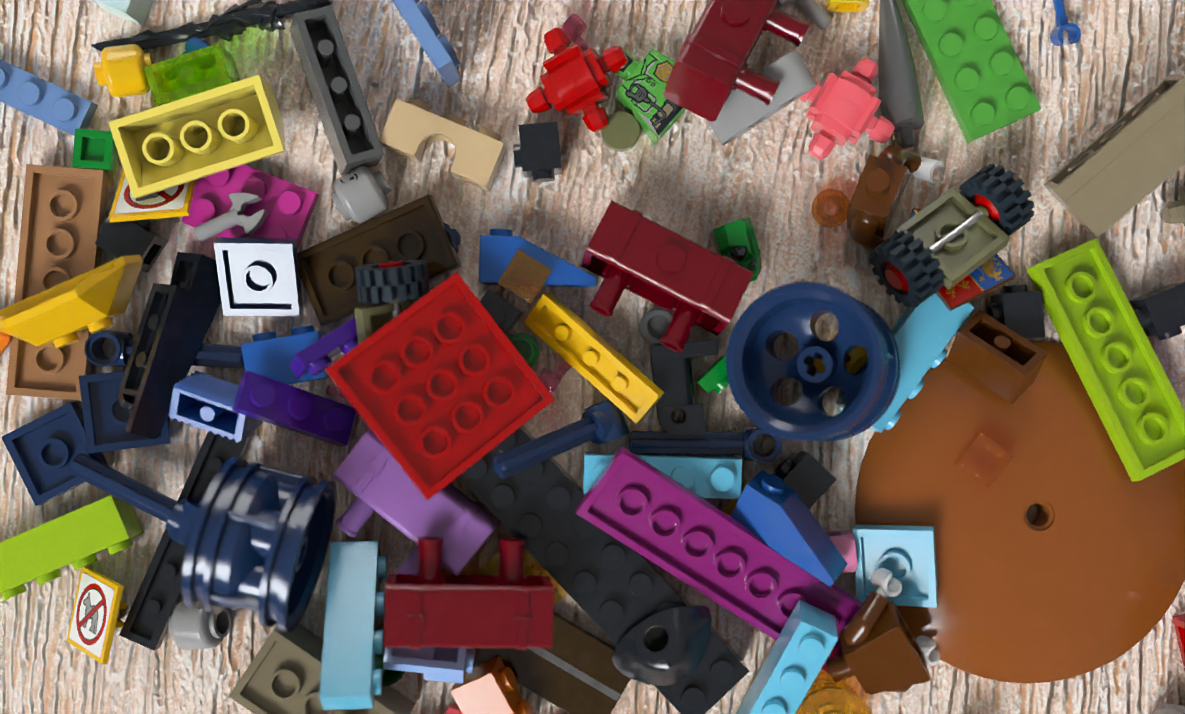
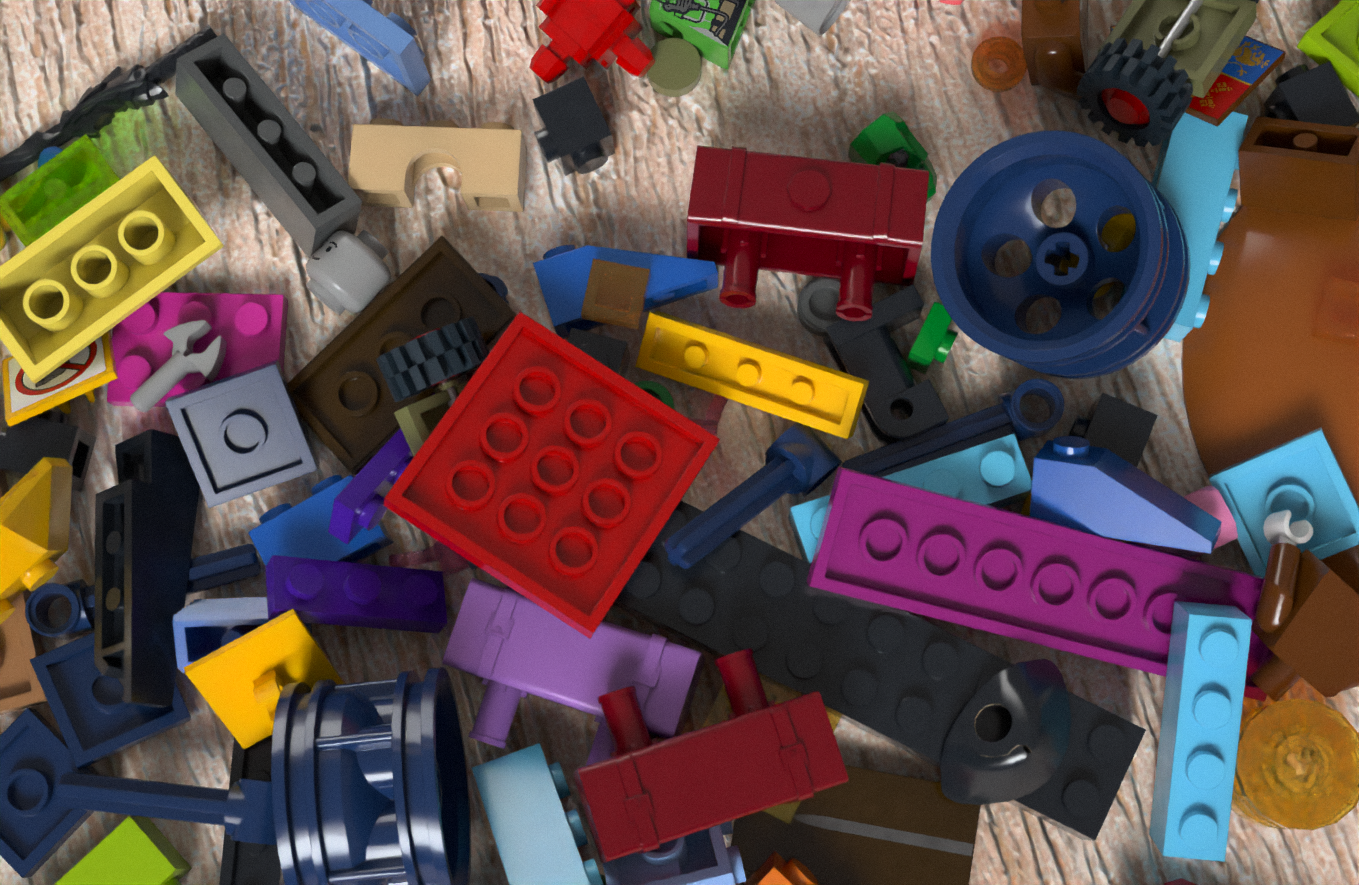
camera: 15 degrees left, 10 degrees down
(214, 440) = (250, 672): none -> yellow piece

